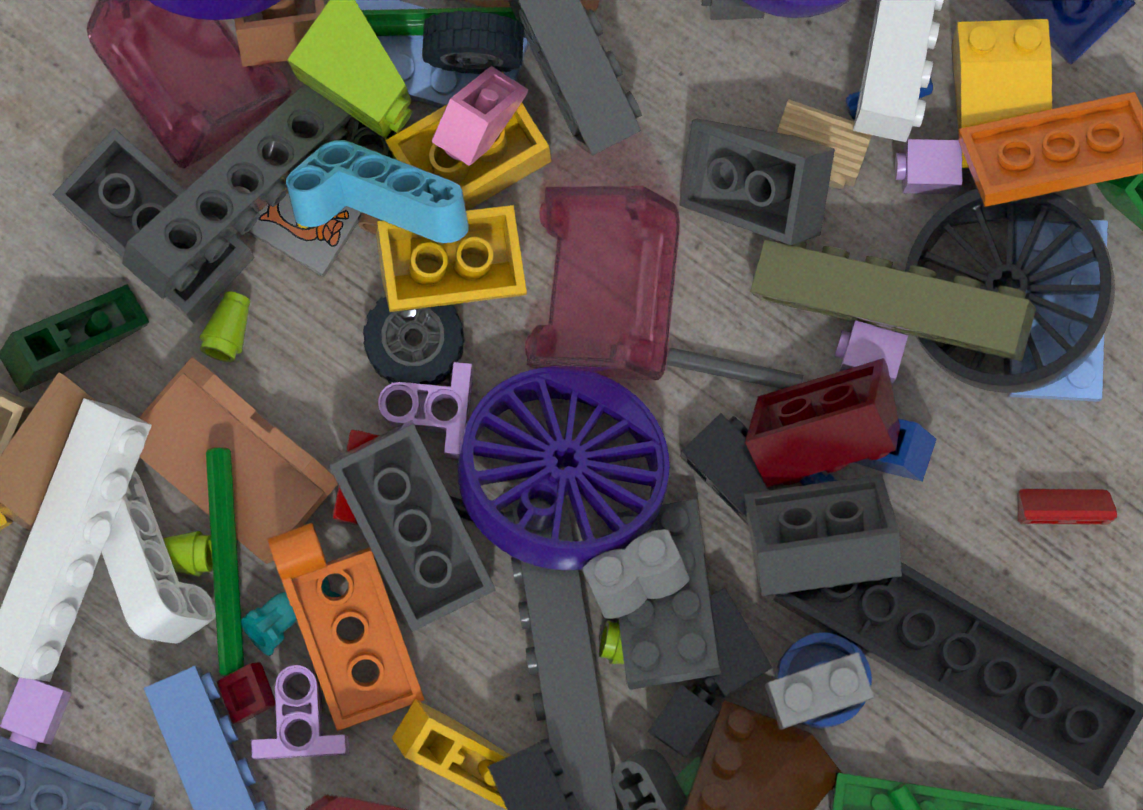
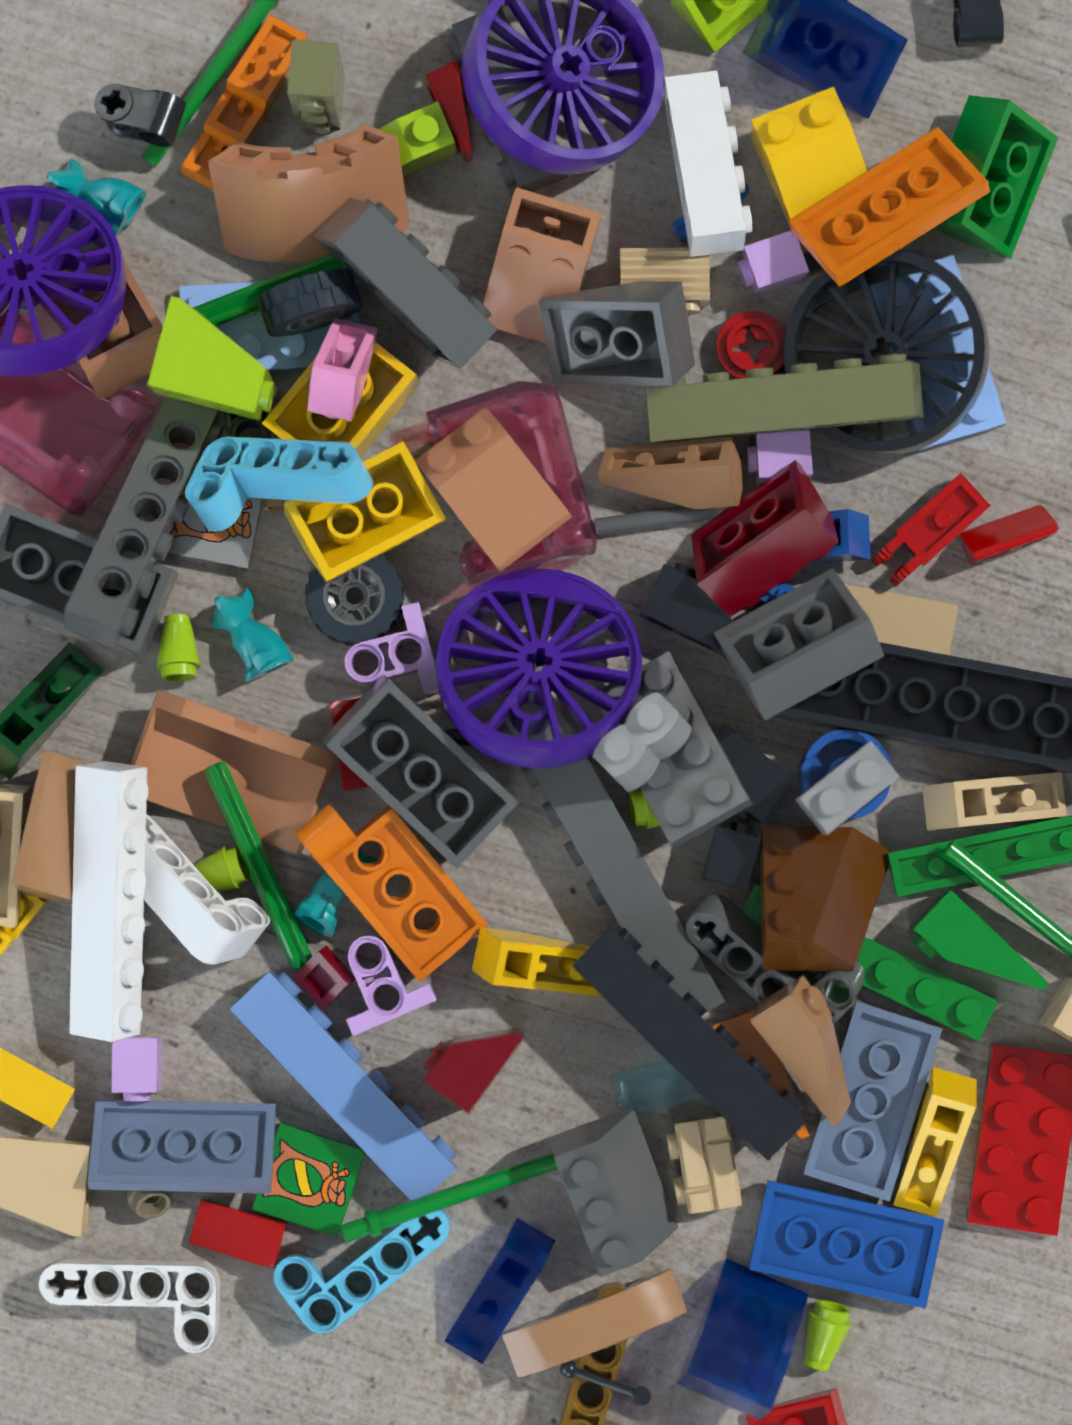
camera: 25 degrees left, 5 degrees up
(302, 348) = (254, 642): none -> teal animal
(582, 281) = (493, 489): none -> nougat slope
(709, 77) = (538, 256): none -> nougat slope
(771, 333) = (680, 472): none -> medium nougat slope
(869, 220) = (734, 333): none -> red gear
(939, 553) = (908, 619): none -> tan sticker
(960, 760) = (994, 801): none -> tan slope
(996, 473) = (934, 526): none -> red hinge

